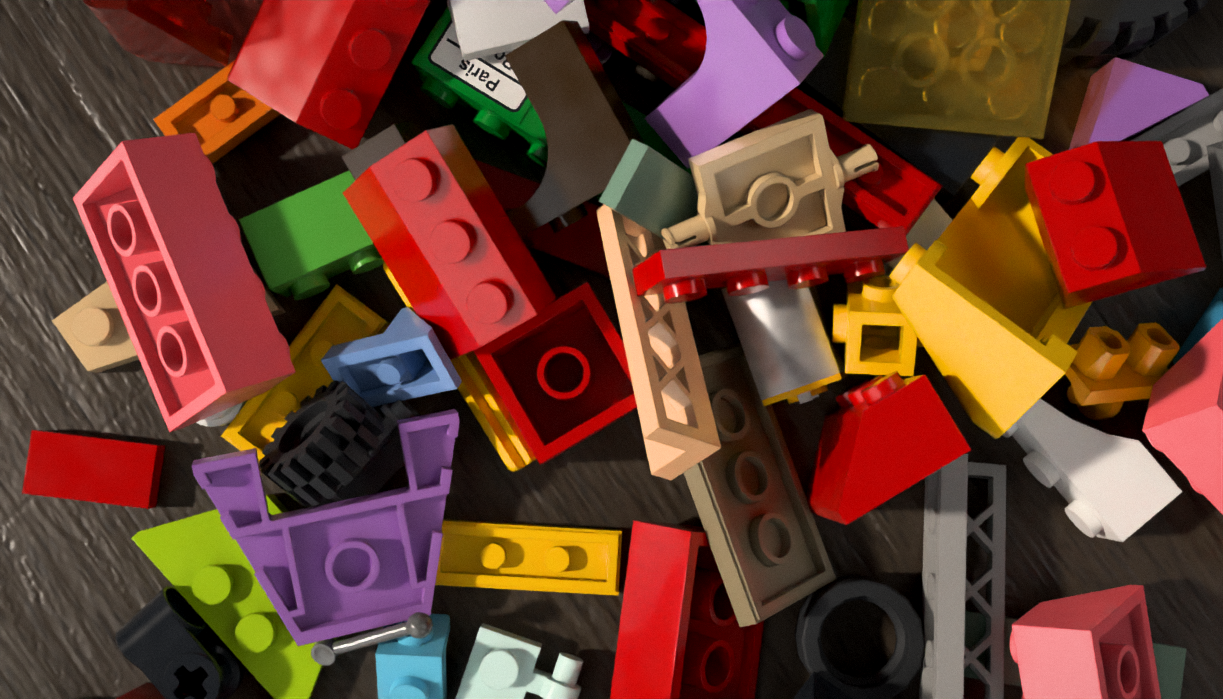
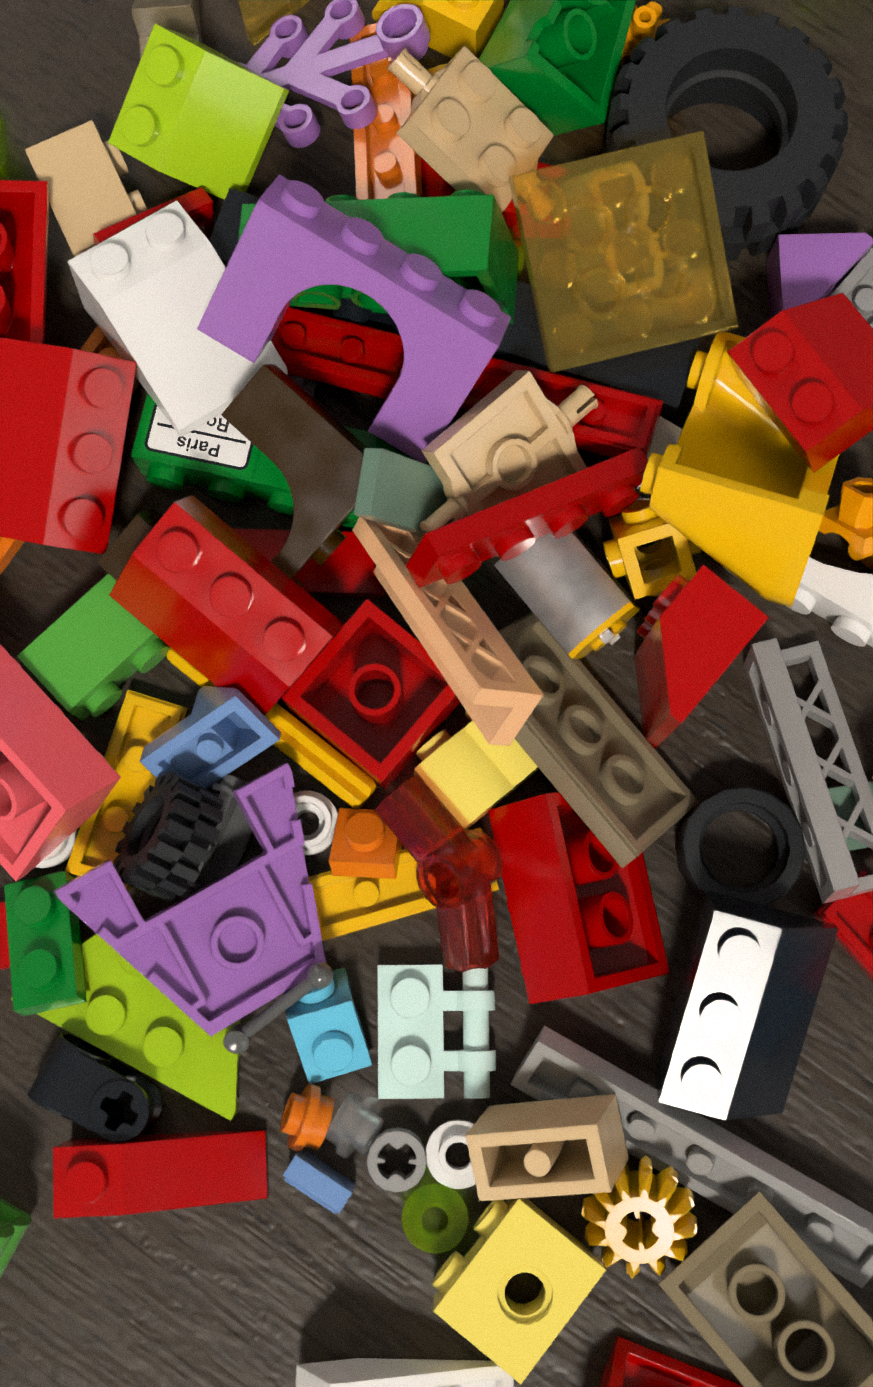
camera: 20 degrees left, 5 degrees down
(173, 505) = (43, 946): none -> green plate
(481, 473) = (320, 805): none -> white plate
(509, 510) = (364, 846): none -> orange plate
(579, 567) = (451, 872): none -> clear red piece
(622, 480) = (471, 773): none -> light yellow brick

